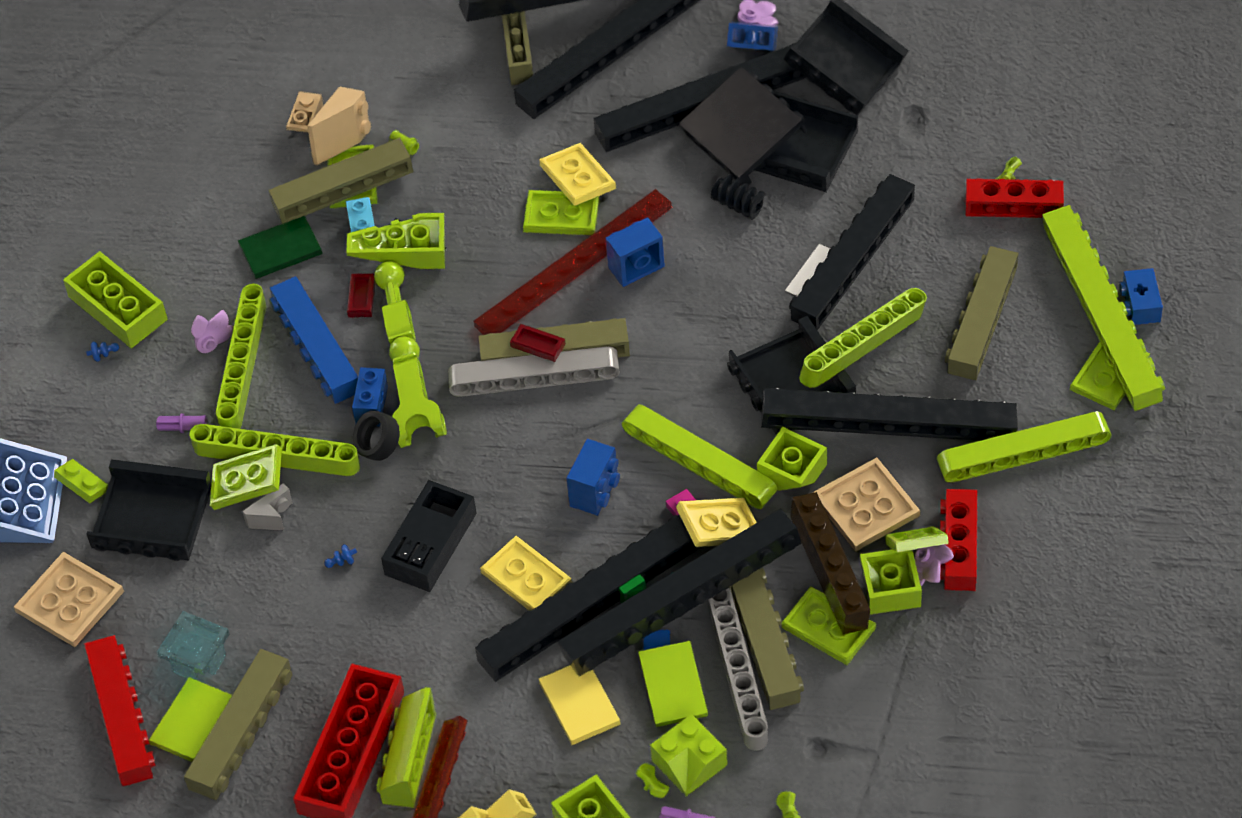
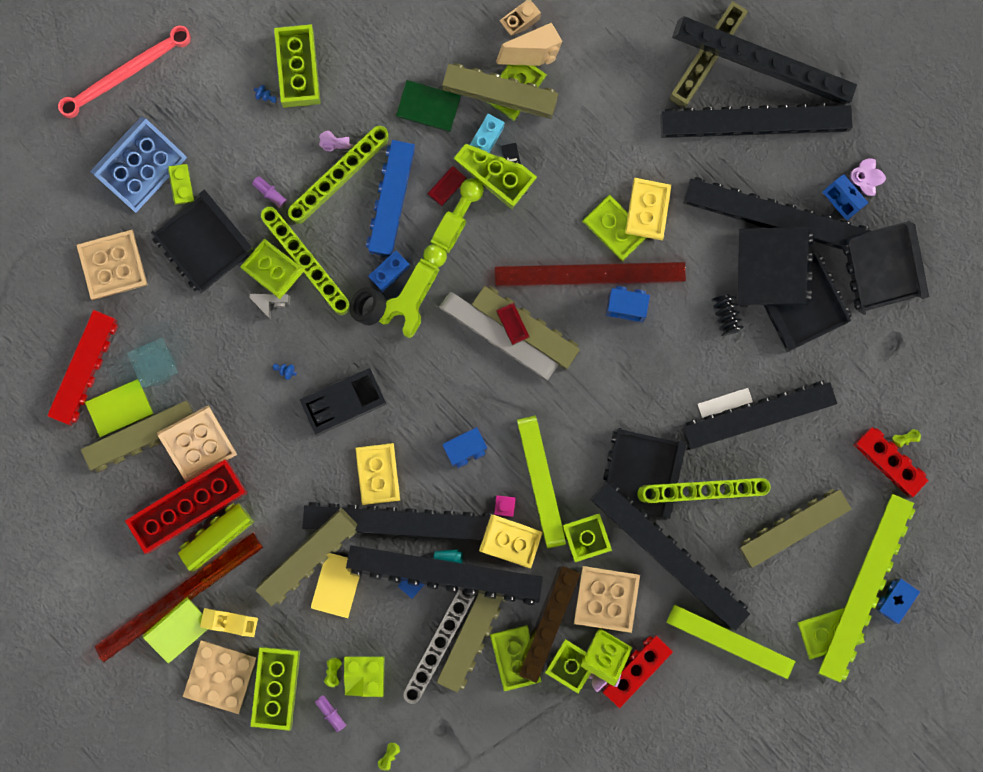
camera: 30 degrees right, 30 degrees up
(305, 677) = (196, 443): none -> tan plate
(410, 143) = (565, 89): lime pin -> none
(522, 687) = (306, 557): none -> olive brick
(632, 588) = (425, 542): green tile -> none
(672, 683) = (395, 621): lime tile -> none

